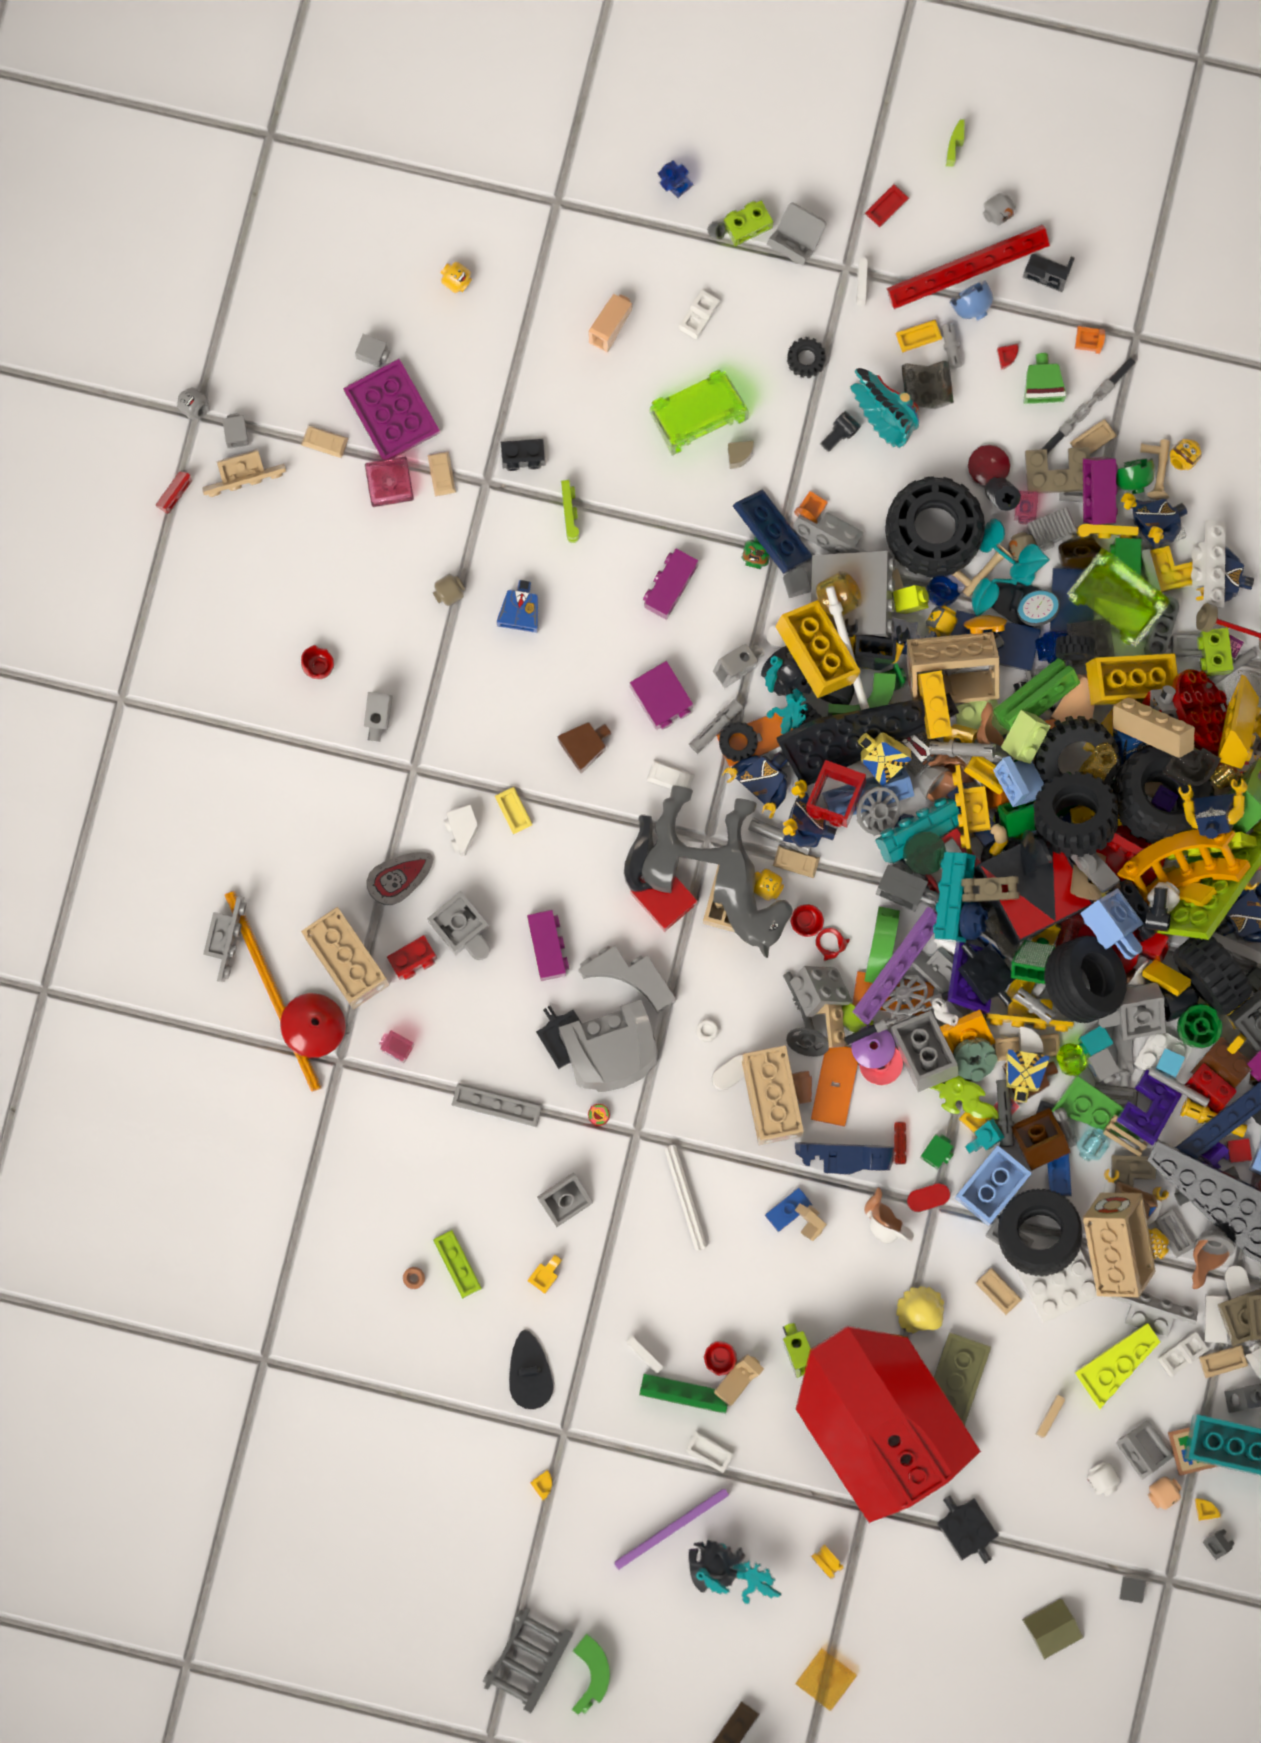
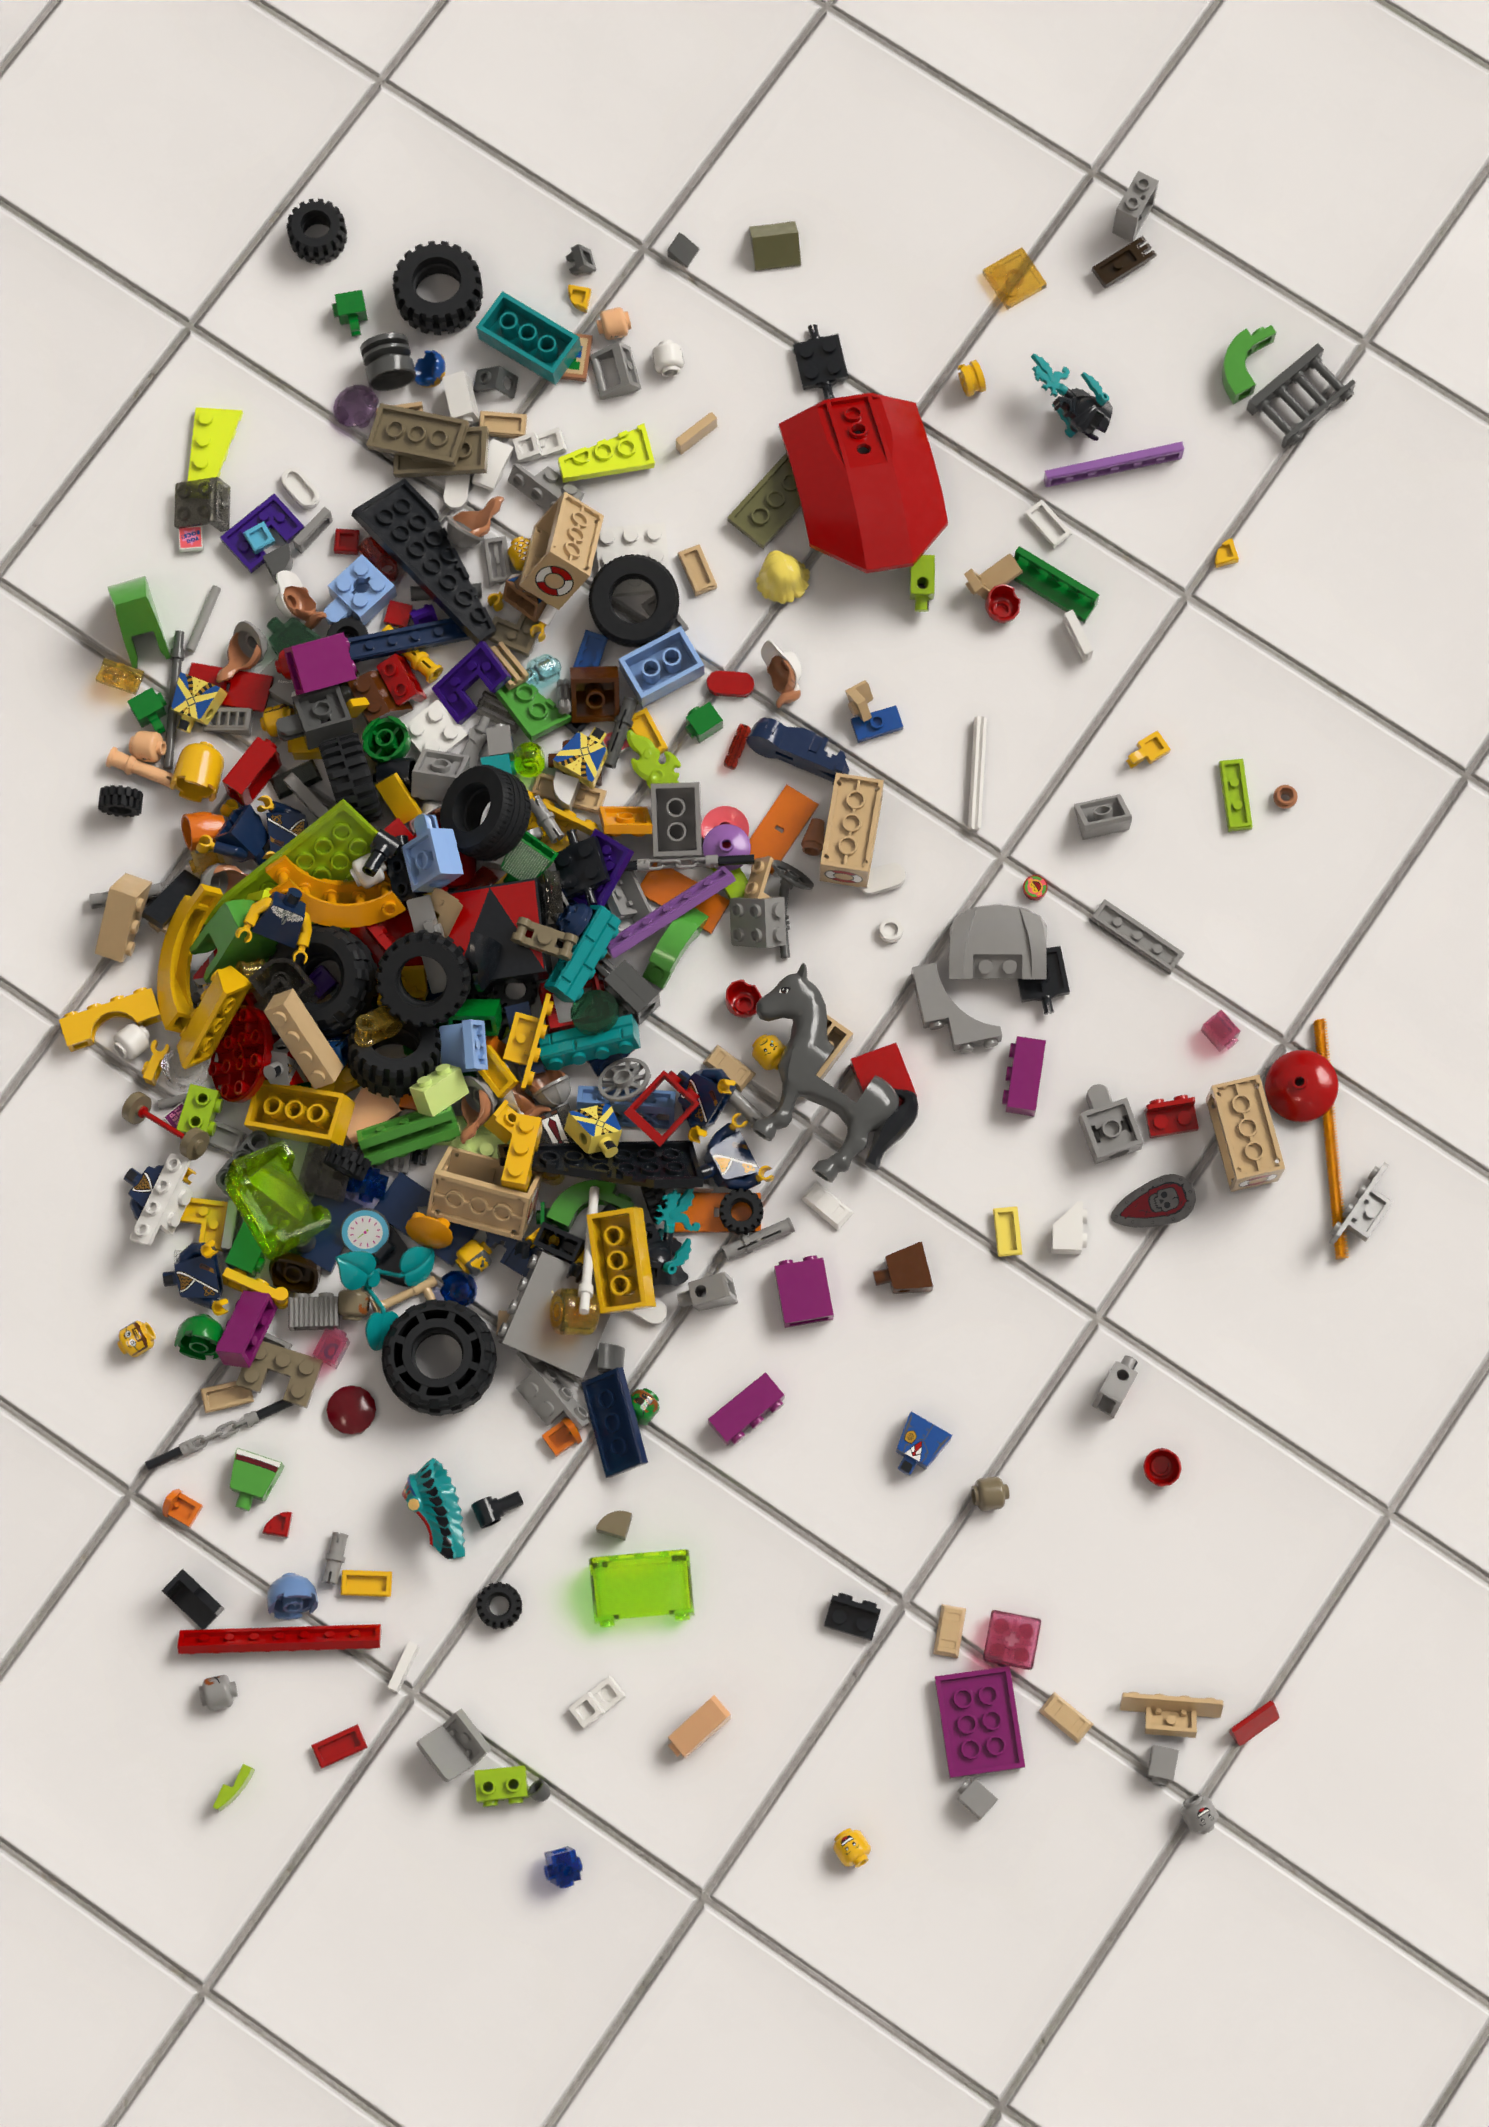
camera: 160 degrees left, 5 degrees down
(529, 1373) = (1200, 664): black shield -> none
(570, 512) = (825, 1529): lime plate -> none
(842, 942) = (715, 965): red piece -> none
(905, 994) = (674, 883): light grey wheel -> none
(910, 599) = (496, 1292): neon yellow brick -> none
(928, 385) = (379, 1520): clear smoke bracket -> none
(942, 1012) = (643, 845): white arm -> none
(962, 749) = (506, 1101): light grey pin -> none
(983, 1066) = (628, 796): sand green plate -> none
(987, 1137) = (647, 716): teal plate -> none
(1001, 839) = (509, 999): tan arm -> none
(1002, 494) = (351, 1366): black piece -> none
(1163, 451) = (158, 1353): tan piece -> none
(1170, 1062) = (431, 717): medium azure tile -> none
(1178, 1086) = (432, 692): light grey bar -> none
(1196, 893) = (332, 864): yellow tile -> none

